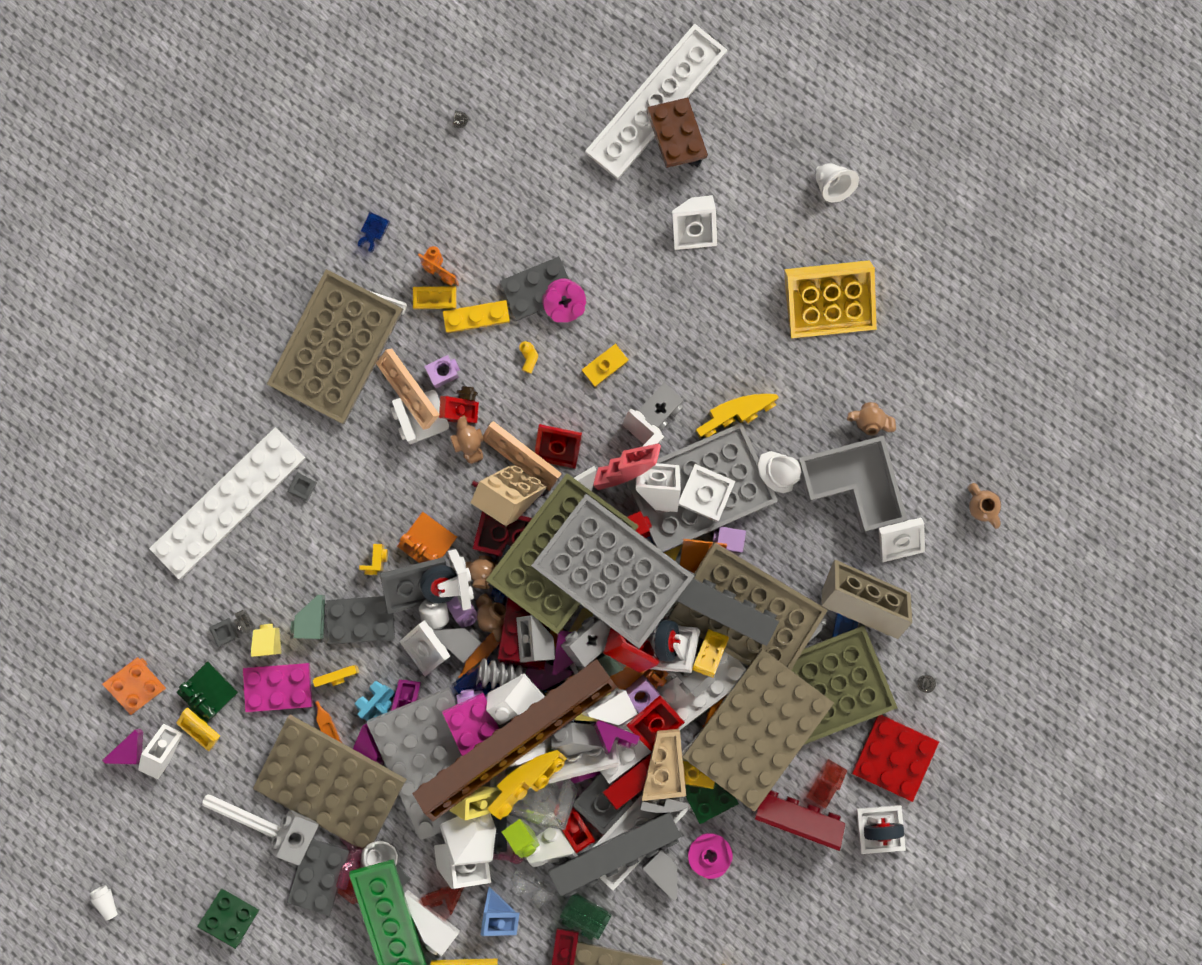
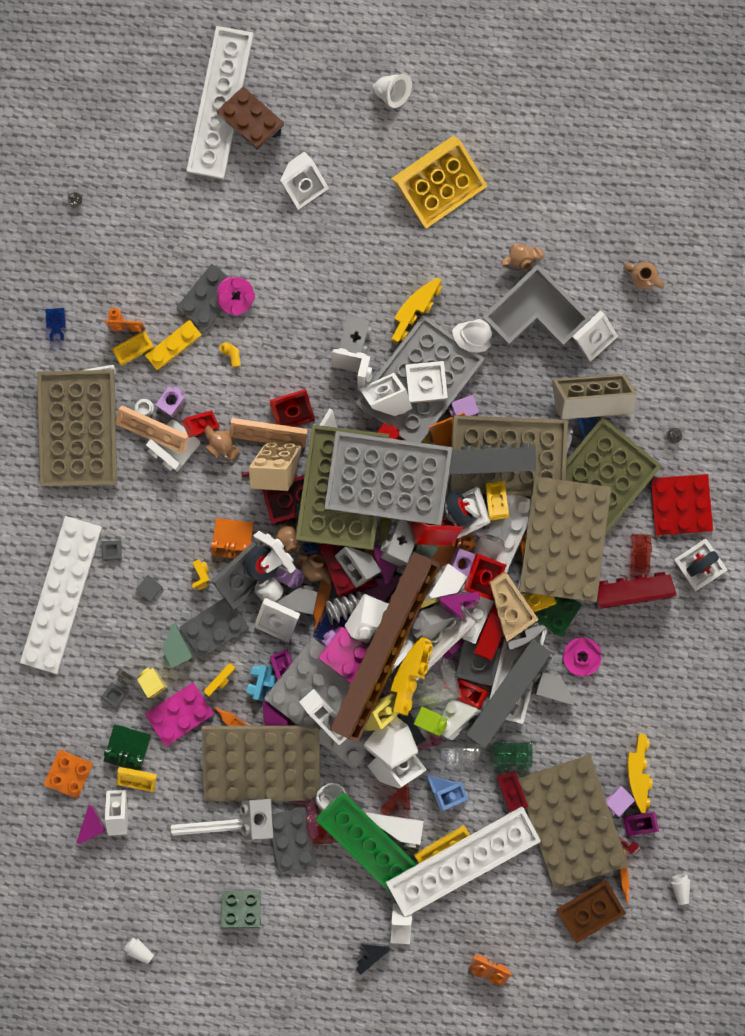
camera: 25 degrees left, 0 degrees up
(318, 545) = (149, 588): none -> dark grey tile
(413, 362) = (144, 407): none -> white plate
(414, 767) = (321, 713): none -> white slope
(467, 393) = (199, 407): dark brown plate -> none
(605, 365) = (294, 328): yellow plate -> none
(627, 467) = (355, 395): coral slope -> none

